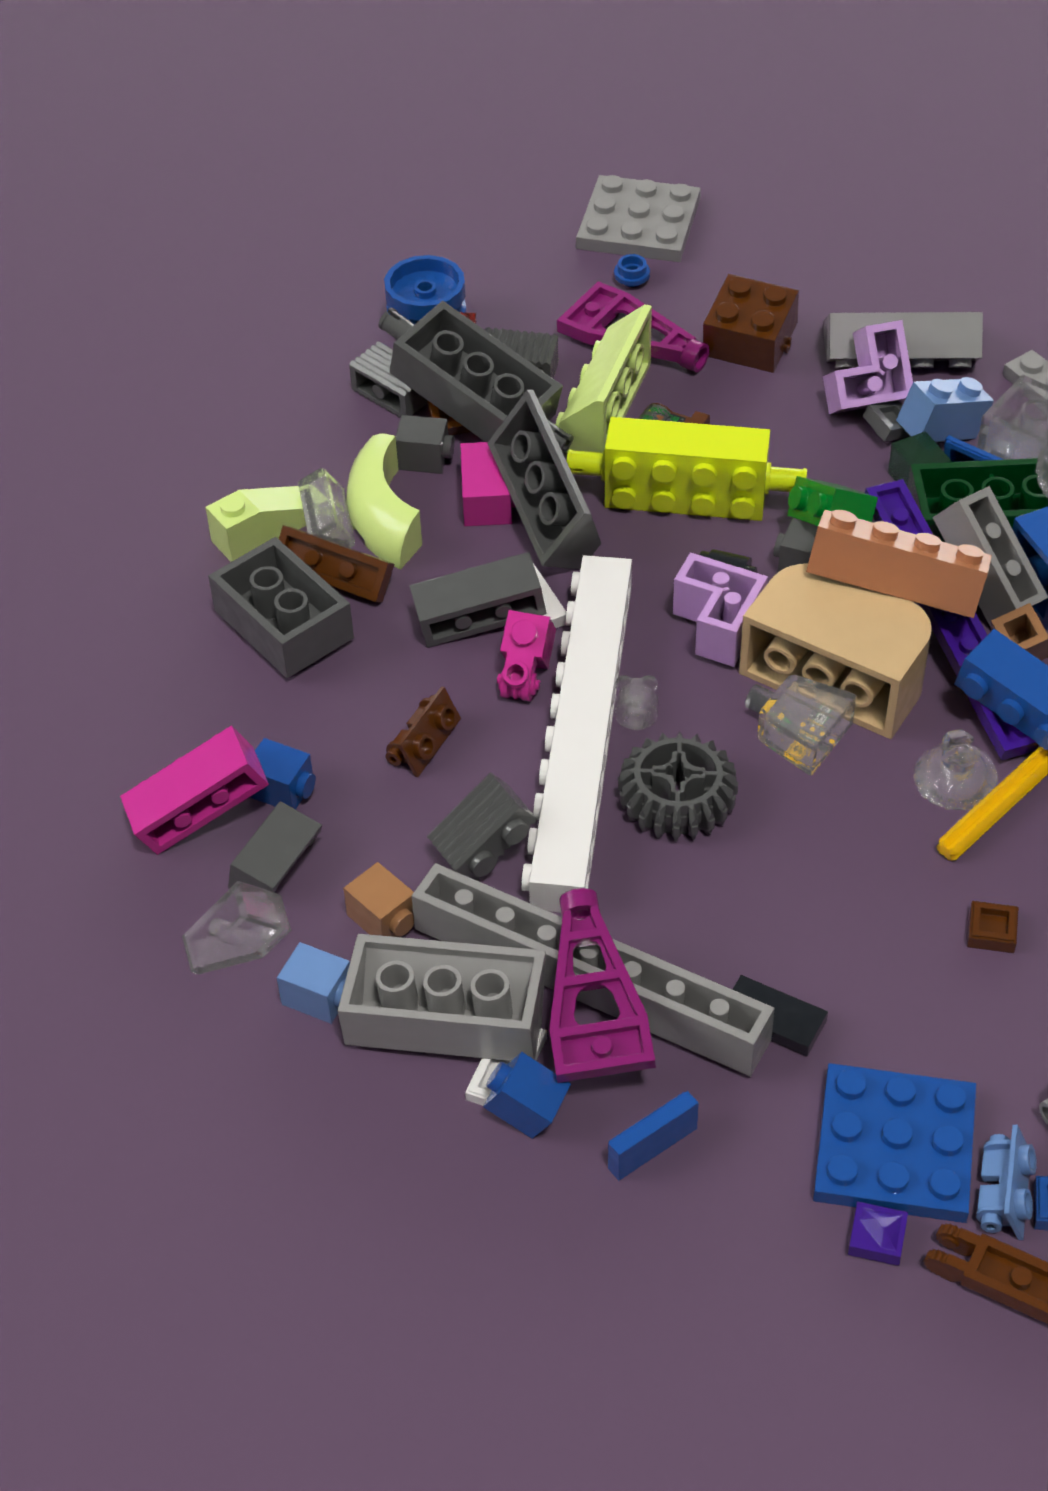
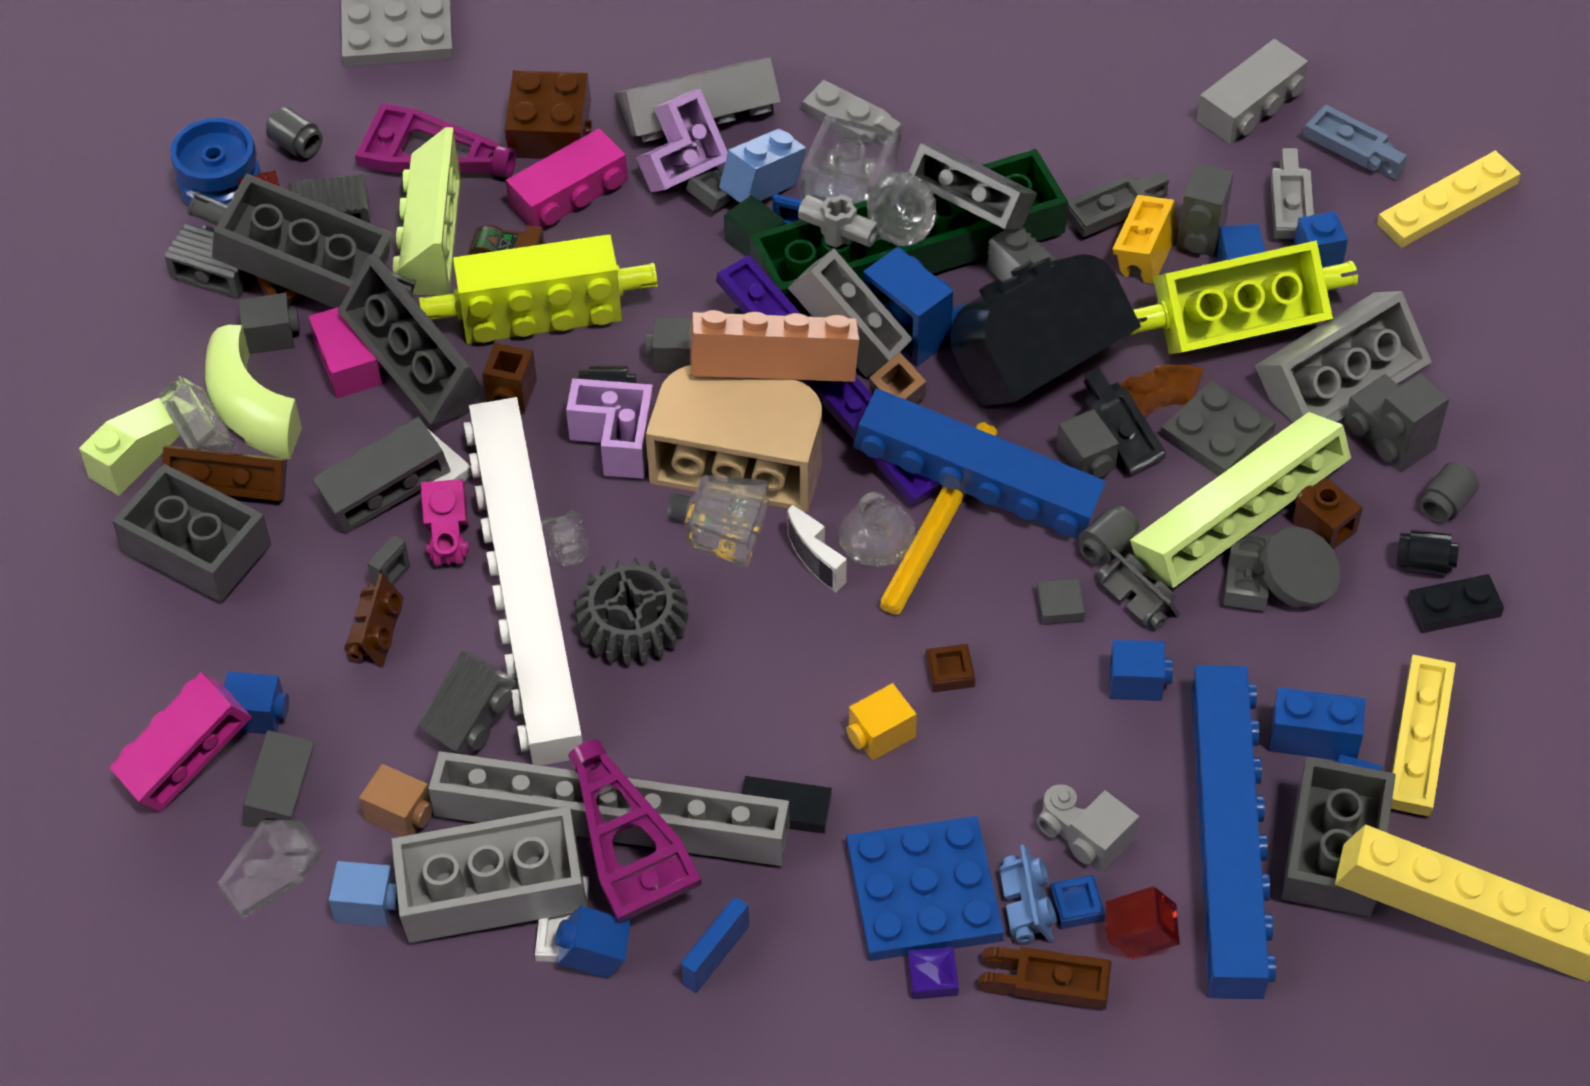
camera: 20 degrees left, 5 degrees up
(458, 678) = (390, 560): none -> dark grey tile
(508, 290) = (294, 132): none -> dark grey brick
(632, 270) = (410, 81): blue plate -> none
(633, 536) = (510, 374): none -> reddish brown brick
(750, 382) = (567, 179): none -> dark pink brick
(811, 497) = (684, 292): green brick -> none
(881, 768) = (809, 543): none -> white slope
(901, 960) = (881, 722): none -> yellow brick
(1004, 467) = (838, 220): none -> light grey axle

